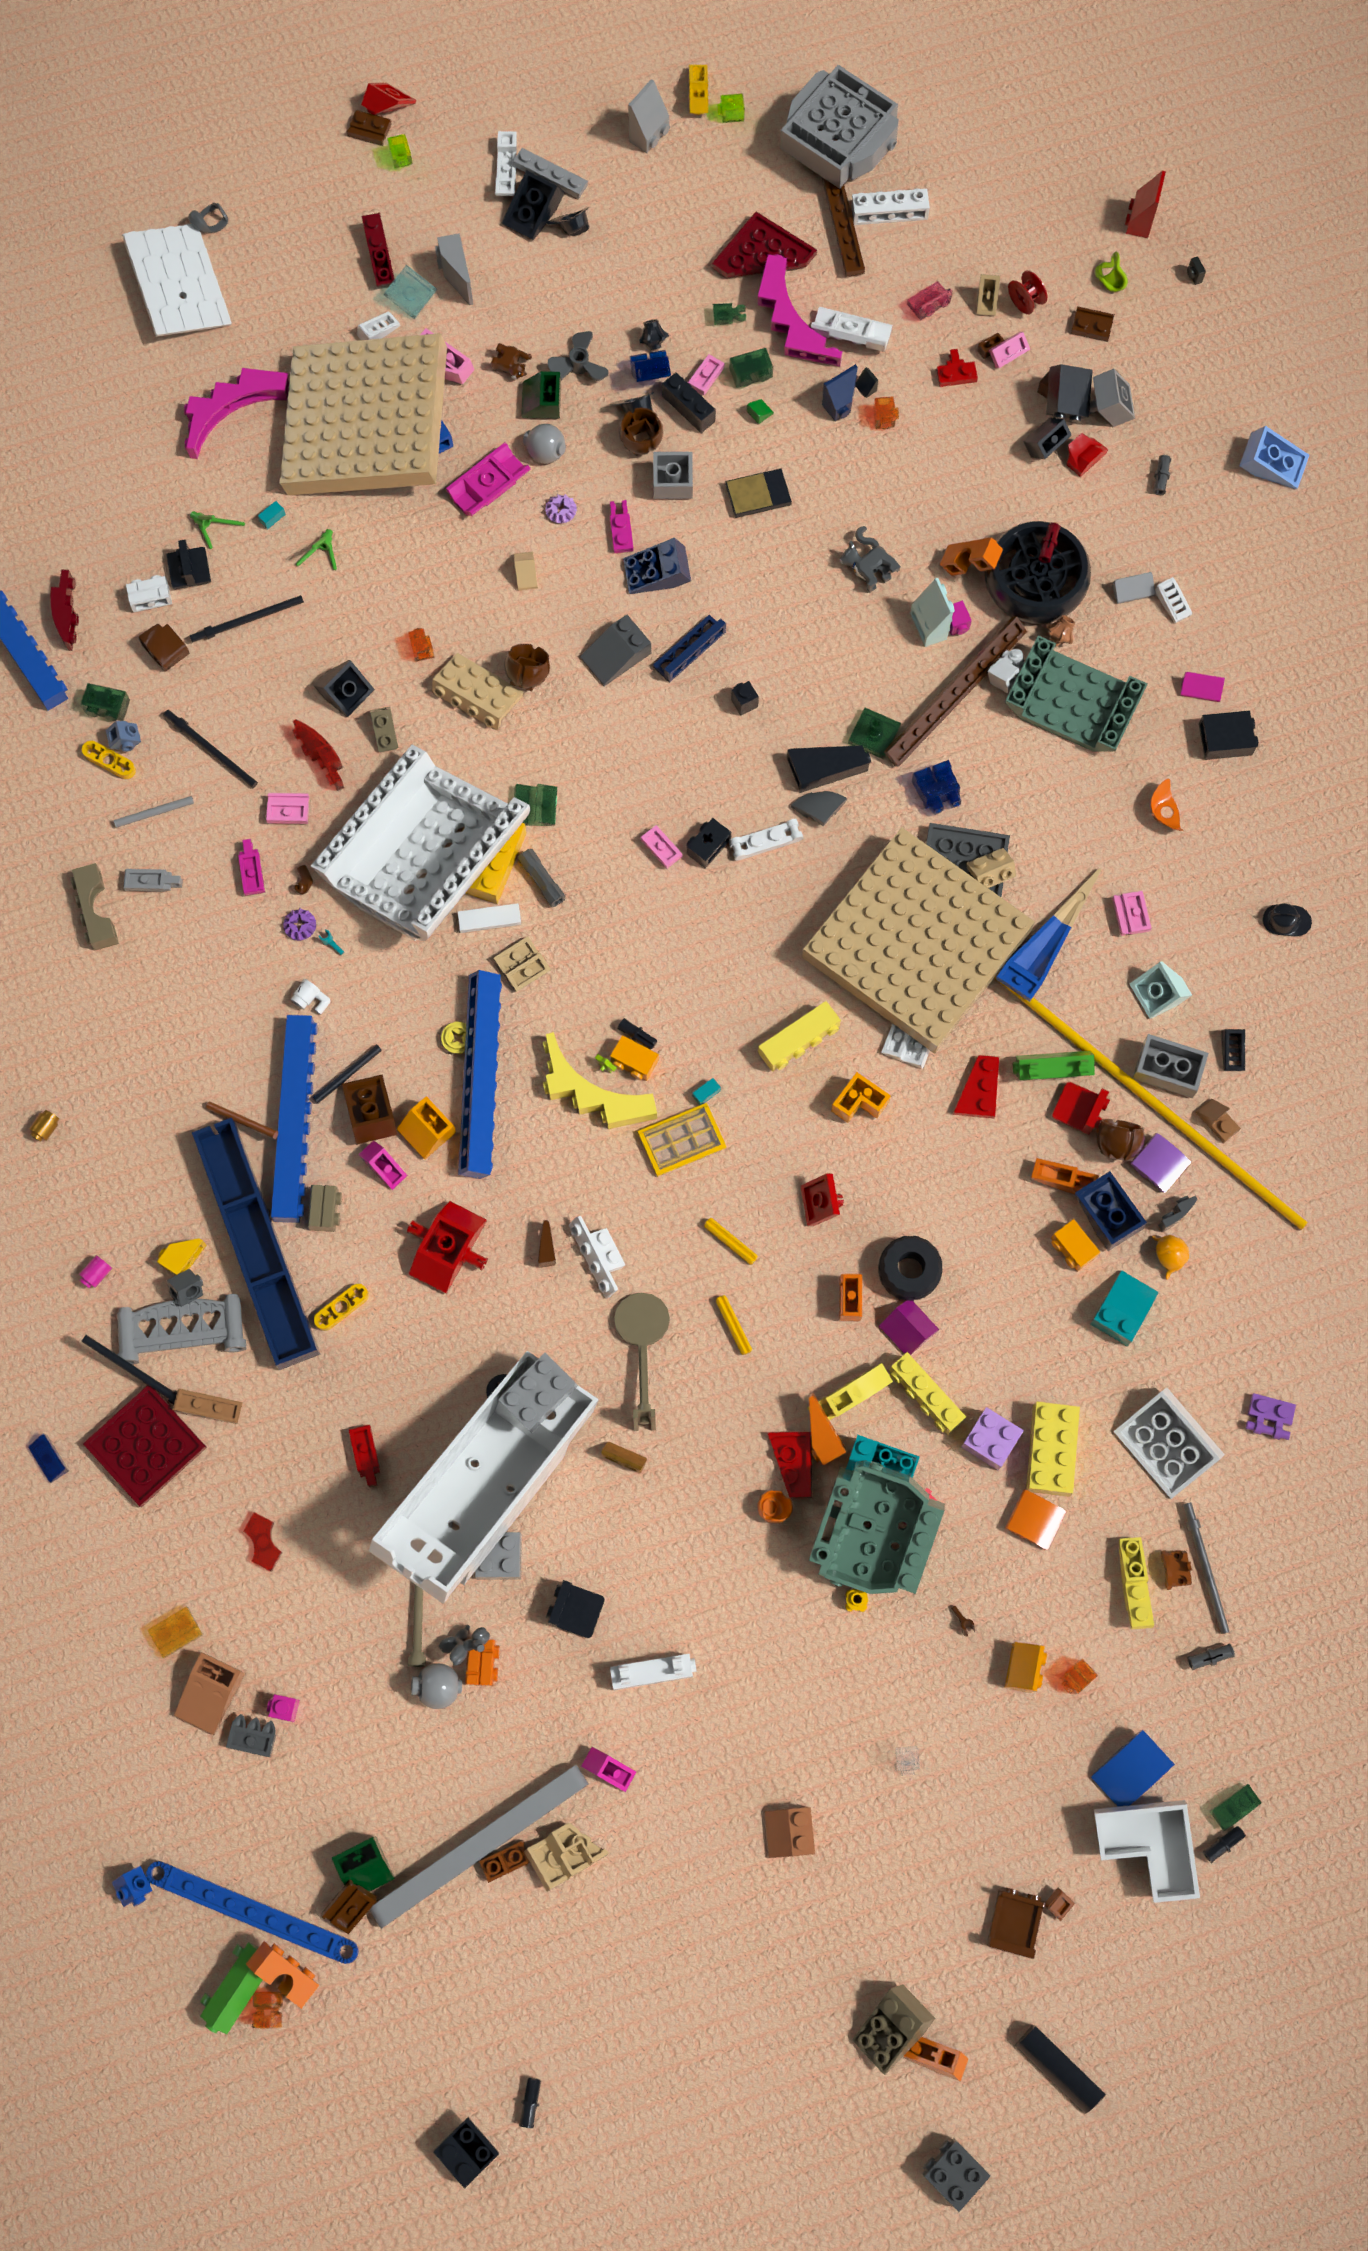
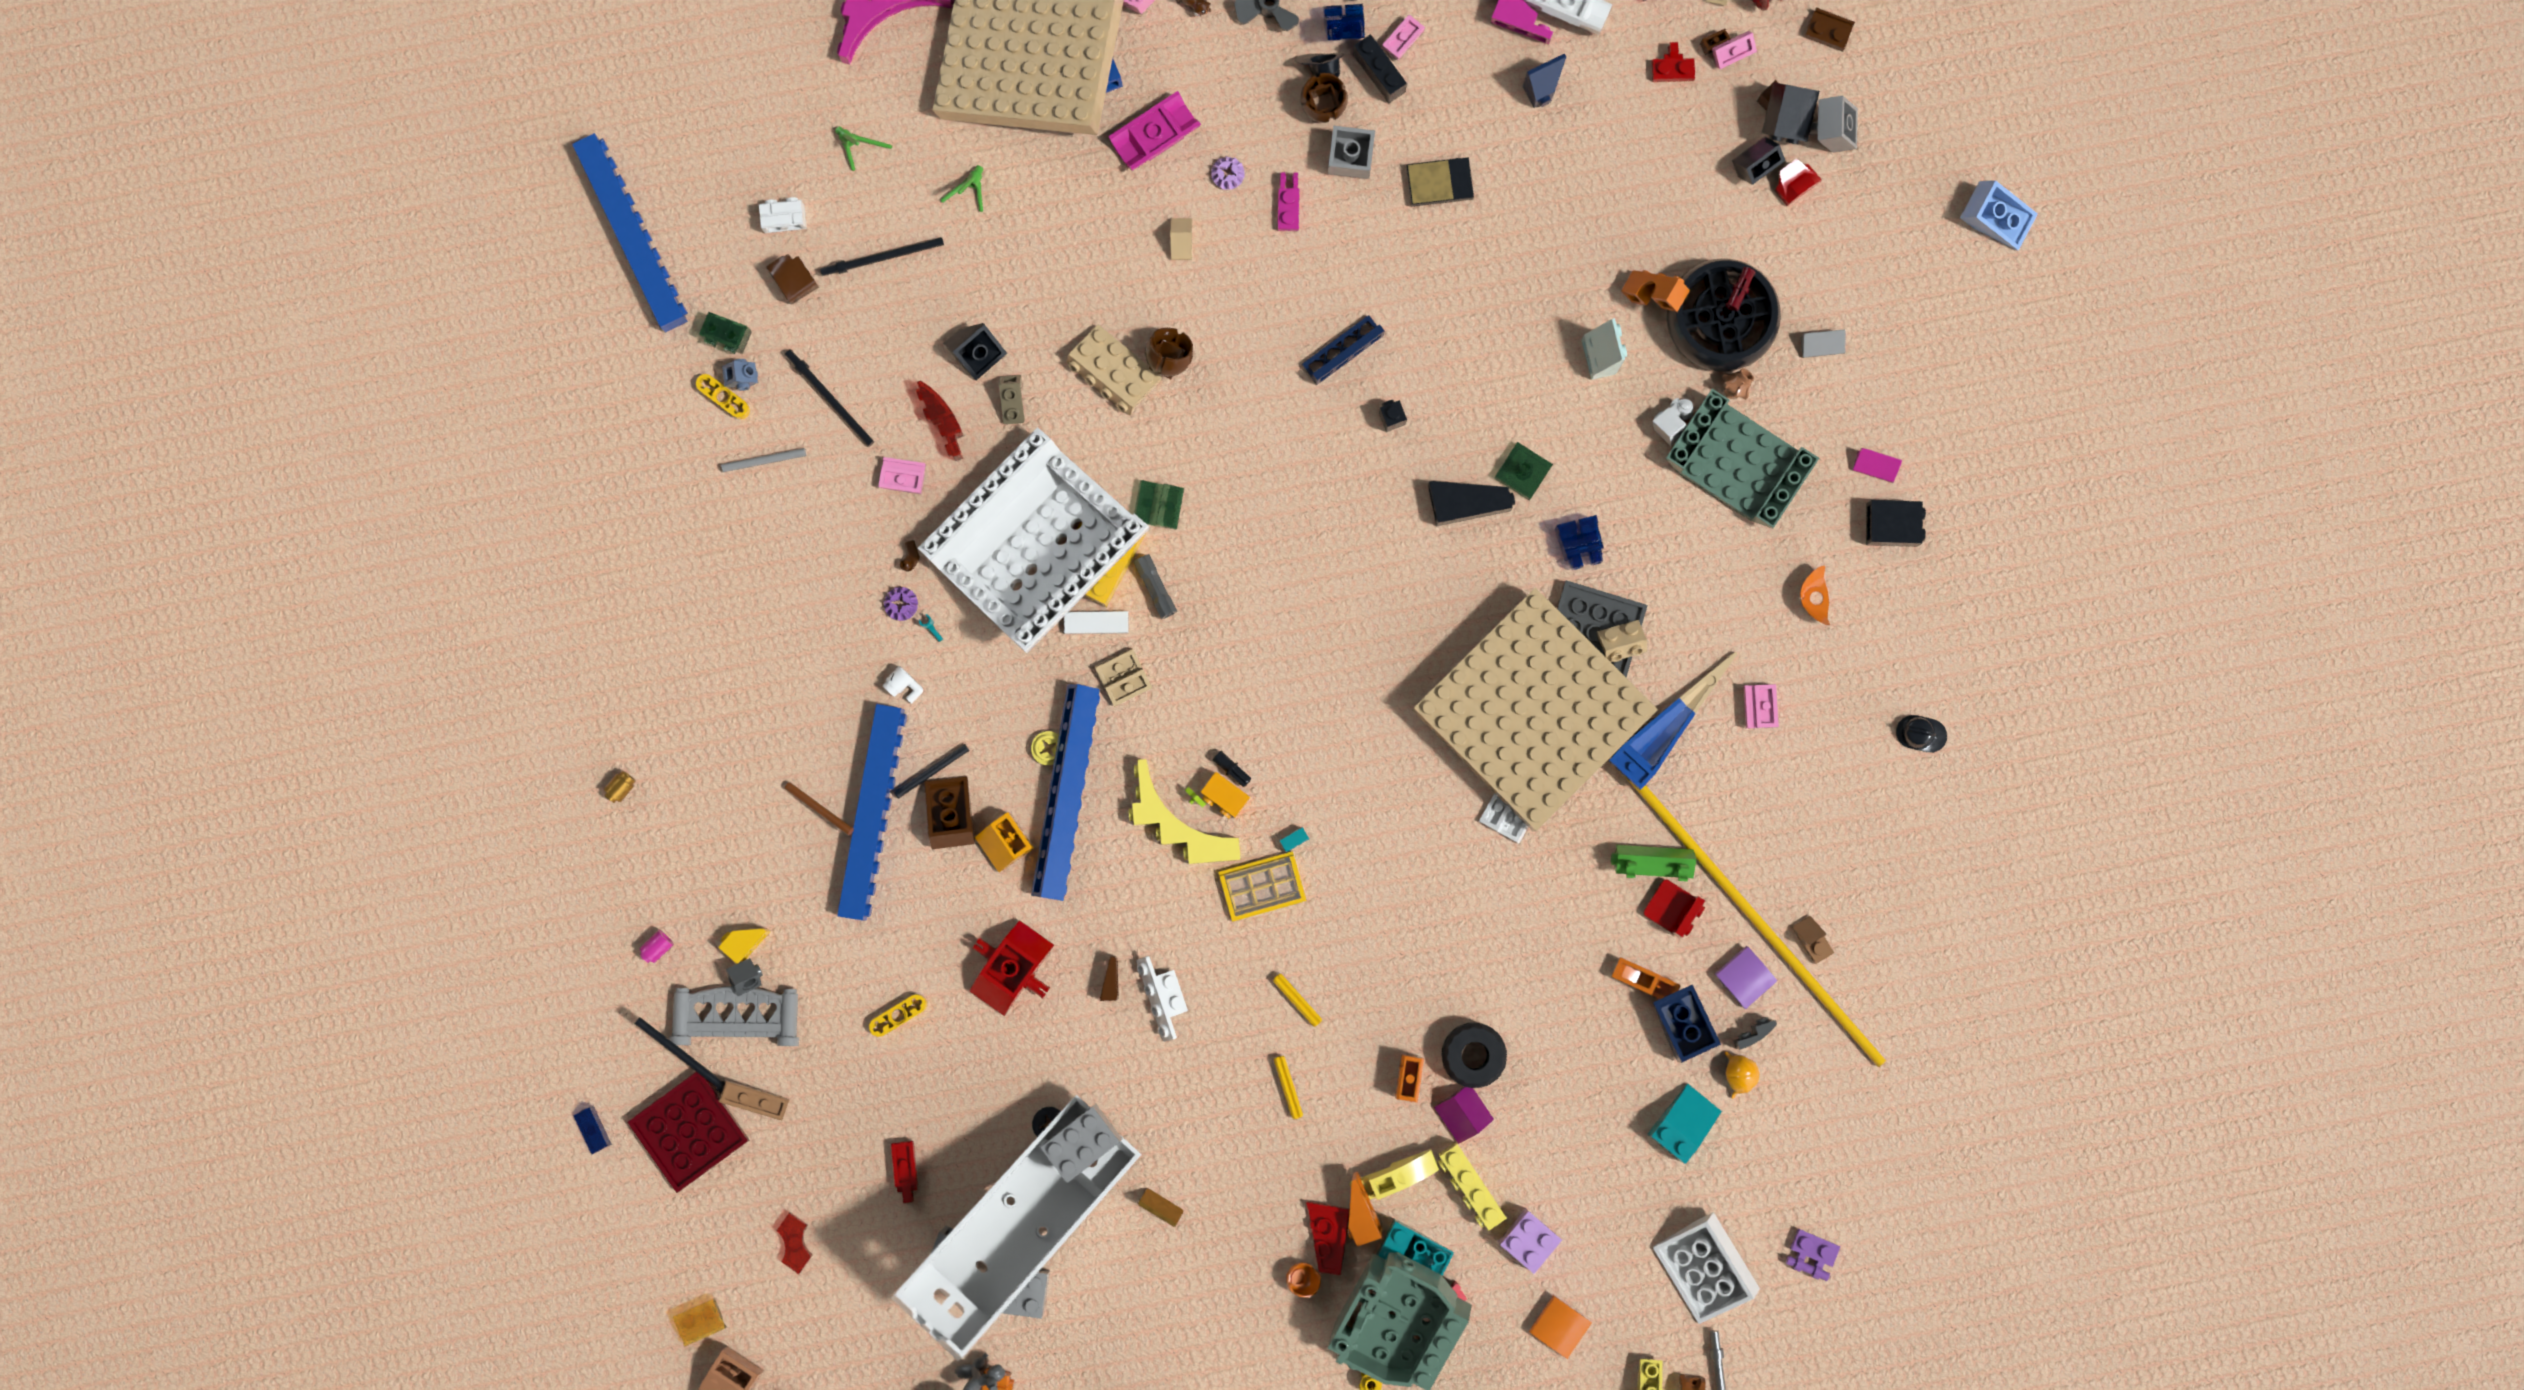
camera: 10 degrees right, 10 degrees up
(62, 609) = (692, 231): dark red slope -> none
(89, 883) = (688, 532): dark tan arch -> none
(150, 880) = (752, 536): light grey hinge -> none
(188, 566) = (827, 190): black bracket -> none
(251, 869) = (857, 538): dark pink hinge -> none
(256, 1244) = (819, 940): dark blue piece -> none
(271, 515) = (921, 141): teal piece -> none
(323, 1208) = (891, 911): dark tan brick -> none
(382, 1164) = (956, 873): dark pink slope -> none
(417, 1657) = (932, 1379): dark tan piece -> none
(421, 645) = (1060, 310): clear orange brick -> none
(542, 395) = (1223, 41): dark green slope -> none
(545, 443) = (1220, 97): light grey brick -> none
(575, 1609) = (1093, 1354): black bracket -> none
(617, 650) = (1265, 344): dark grey slope -> none
(642, 1322) = (1196, 1072): dark tan piece -> none
(657, 567) = (1321, 255): dark blue slope -> none
(661, 847) = (1283, 569): bright pink plate -> none
(706, 853) = (1344, 568): black brick -> none
(751, 367) = (1452, 36): clear green brick -> none
(759, 410) = (1454, 86): green slope -> none
(766, 840) = (1393, 575): white plate -> none
(799, 1036) = (1397, 795): light yellow brick -> none
(819, 805) = (1454, 544): dark grey brick -> none
(820, 1199) = (1394, 972): red tile -> none
(863, 1094) = (1450, 865): light orange brick -> none
(867, 383) = (1574, 69): pearl dark grey slope -> none
(875, 560) = (1552, 277): dark grey animal -> none
(885, 412) = (1589, 107): clear orange brick -> none
(954, 692) = (1615, 436): reddish brown plate -> none
(960, 619) = (1634, 355): dark pink brick -> none
(980, 1090) = (1575, 874): red wing -> none
(1053, 1449) = (1588, 1260): light yellow brick -> none
(1074, 1245) = (1644, 1053): light orange piece -> none
(1120, 1139) = (1708, 950): reddish brown piece -> none
(1160, 990) = (1776, 794): light aqua slope -> none
(1162, 475) = (1875, 216): dark grey pin -> none
(1170, 1066) = (1773, 878): light grey brick -> none
(1178, 597) = (1867, 352): white slope -> none
(1240, 1033) = (1850, 859): black slope -> none

